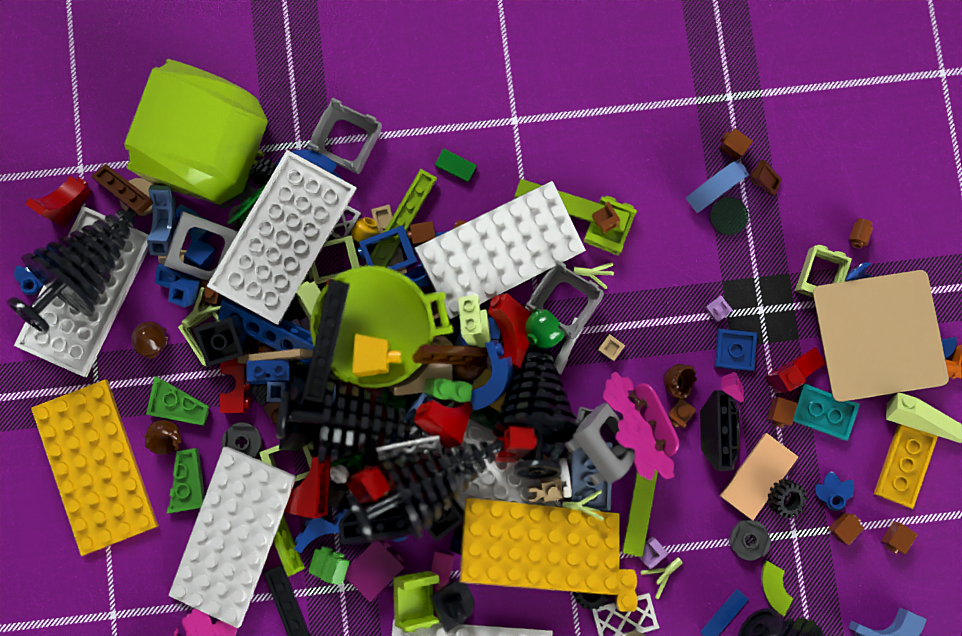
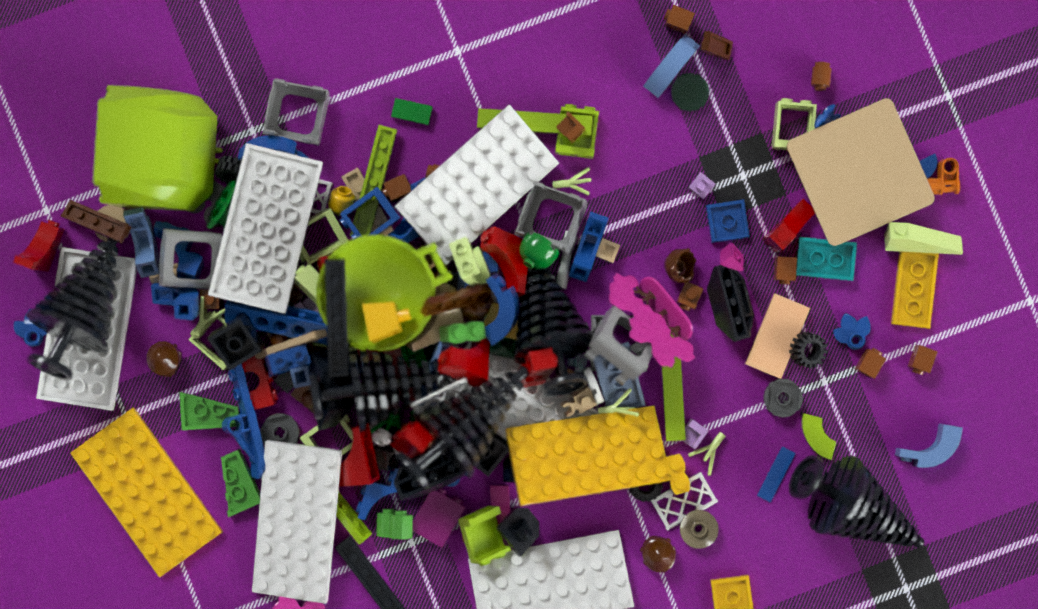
camera: 10 degrees left, 5 degrees up
(162, 437) = (204, 447): reddish brown hair -> none
(209, 431) = (247, 429): none -> blue piece
(593, 338) = (588, 246): none -> blue arch

